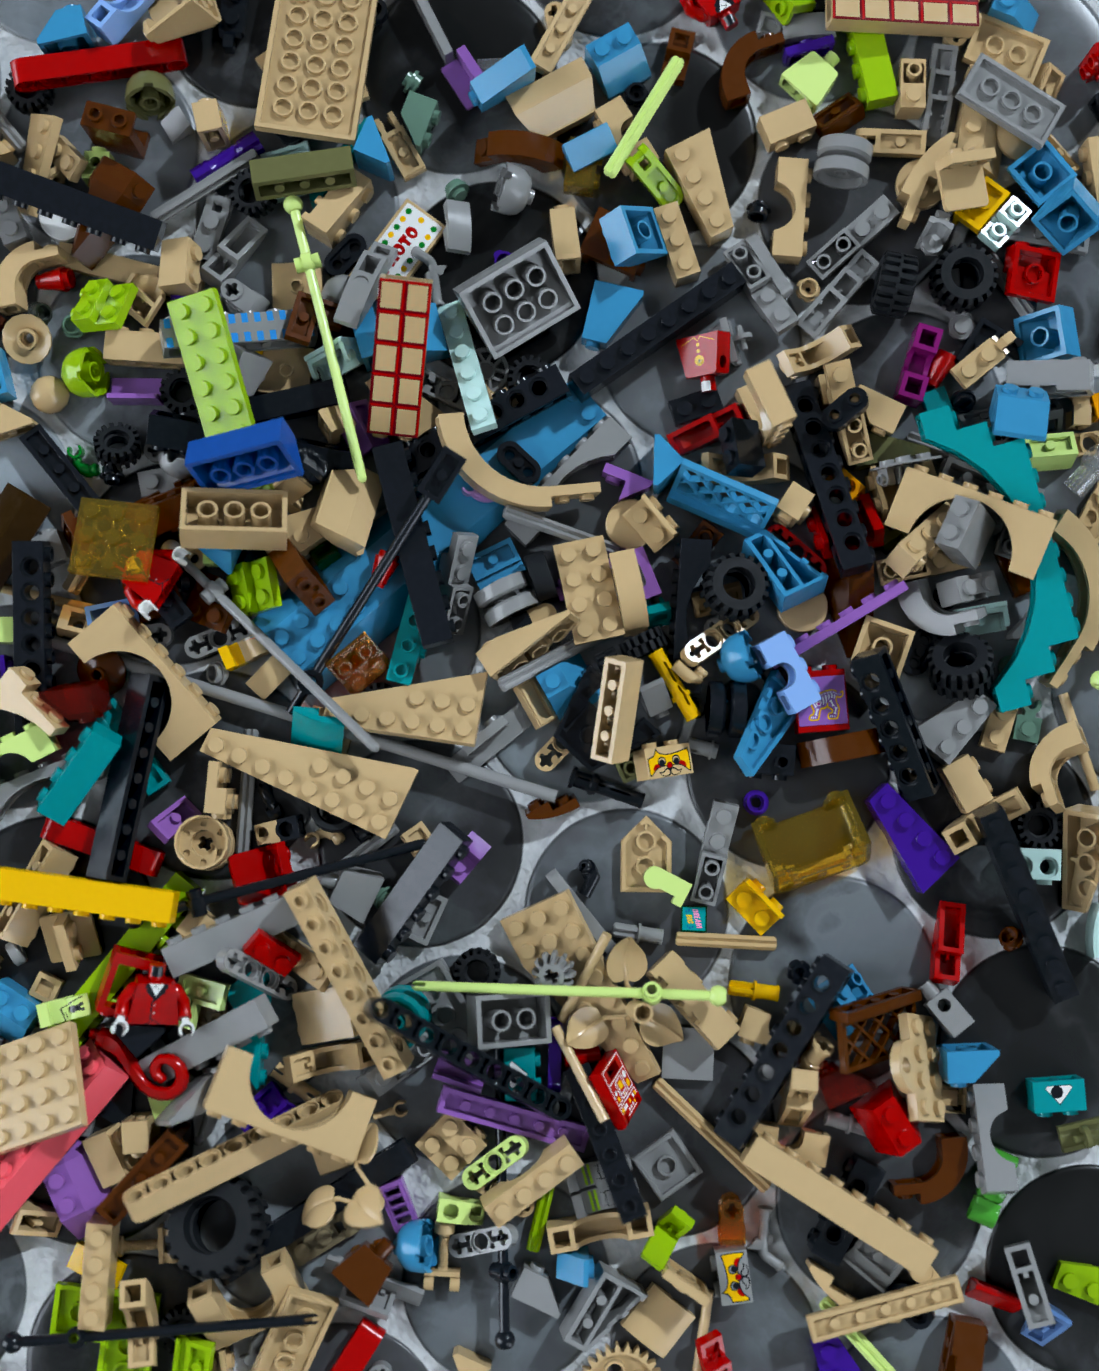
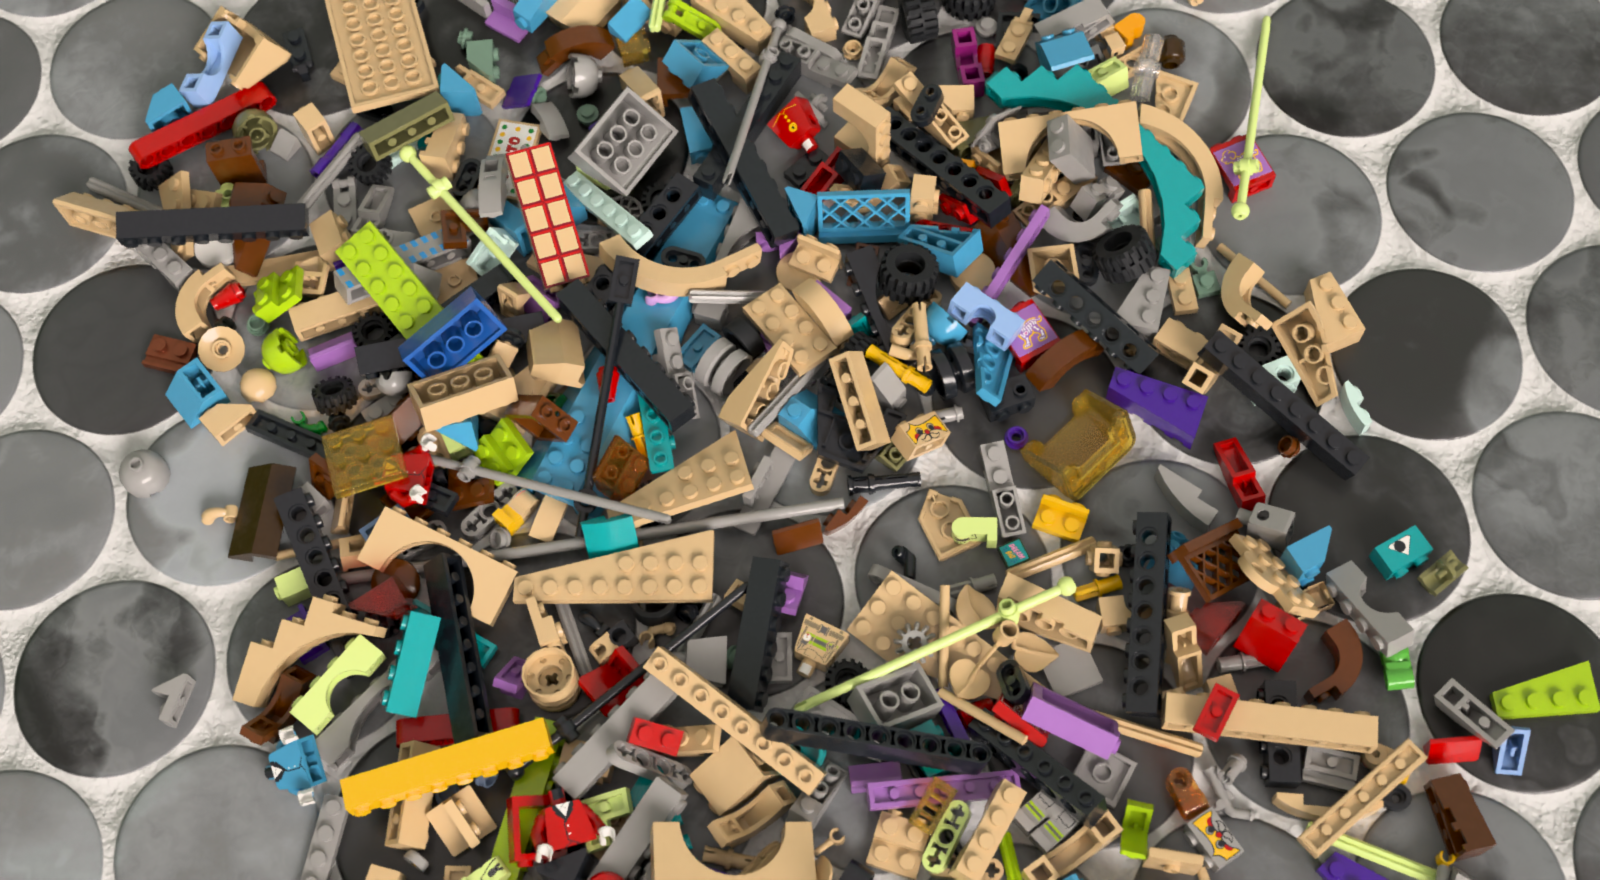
camera: 20 degrees left, 20 degrees down
(393, 623) = (636, 428): none -> yellow axle
(443, 177) = (521, 91): none -> dark purple piece
(466, 924) = (818, 645): none -> tan torso
(498, 805) = (797, 536): none -> reddish brown slope
(500, 235) = (587, 114): none -> sand green plate
(508, 1135) = (943, 786): none -> clear yellow slope
(623, 1056) = (1013, 682): none -> black plate
(626, 385) = (751, 173): none -> black brick
(658, 1115) = (1071, 721): none -> medium lavender piece
(707, 678) = (922, 344): none -> tan pin
(709, 265) = (766, 59): none -> light grey bar
(773, 969) = (1111, 563): none -> tan brick
(788, 1217) = (1235, 764): none -> light grey pin
(791, 1181) = (1216, 712): none -> red plate
(883, 945) = (1185, 499): none -> light grey slope
(1006, 632) = (1146, 212): none -> tan axle

